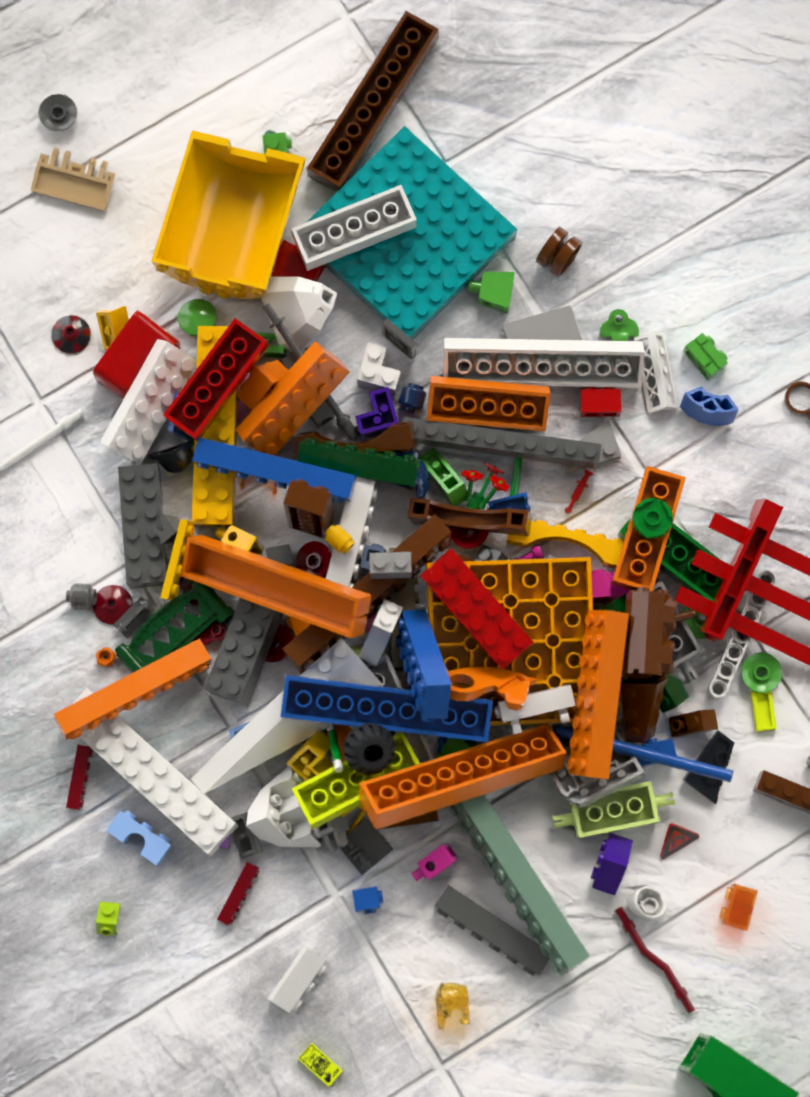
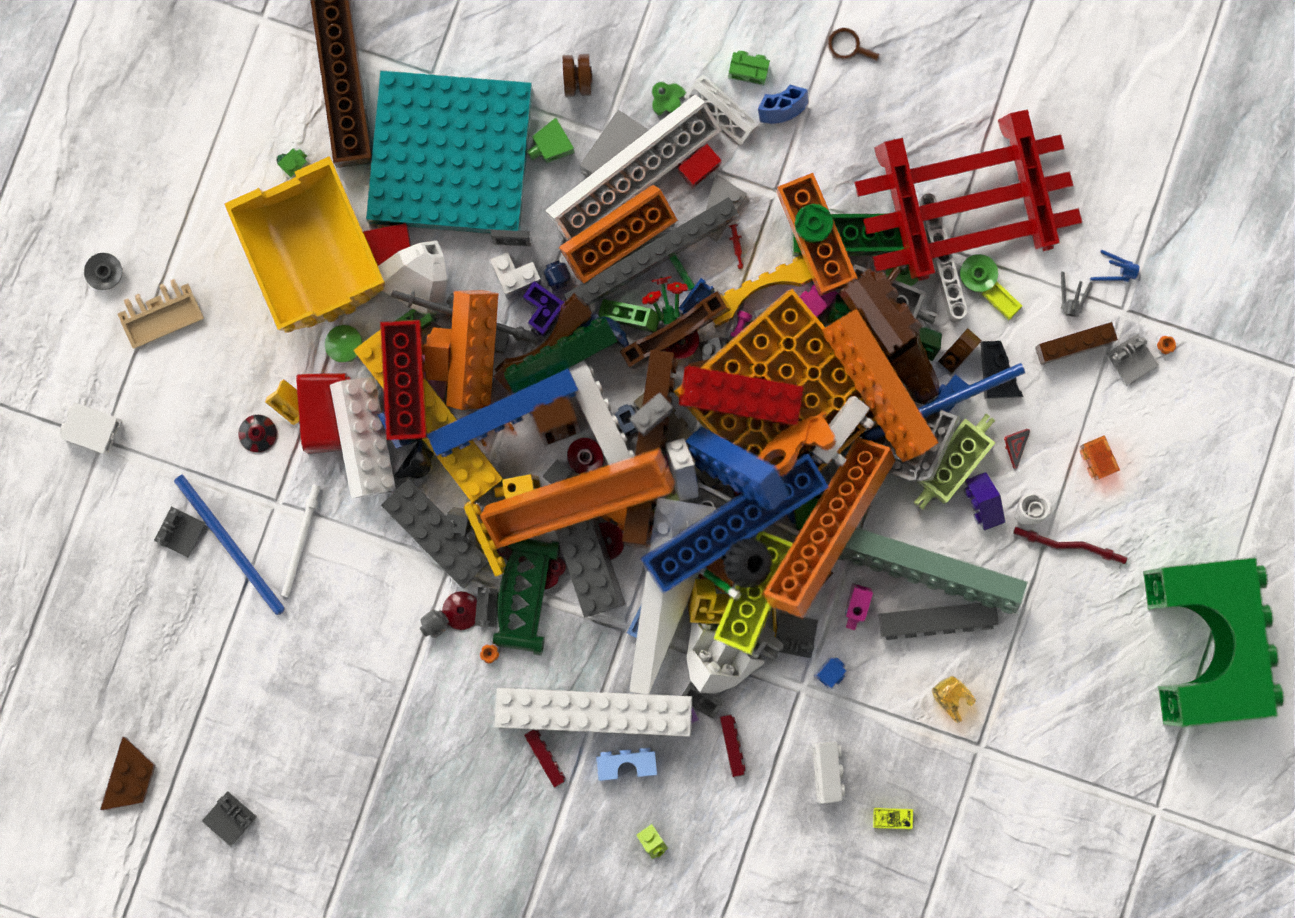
camera: 40 degrees left, 5 degrees up
(132, 689) = (532, 661): orange brick -> none
(339, 538) = (594, 425): yellow brick -> none
(354, 227) = (409, 180): white brick -> none

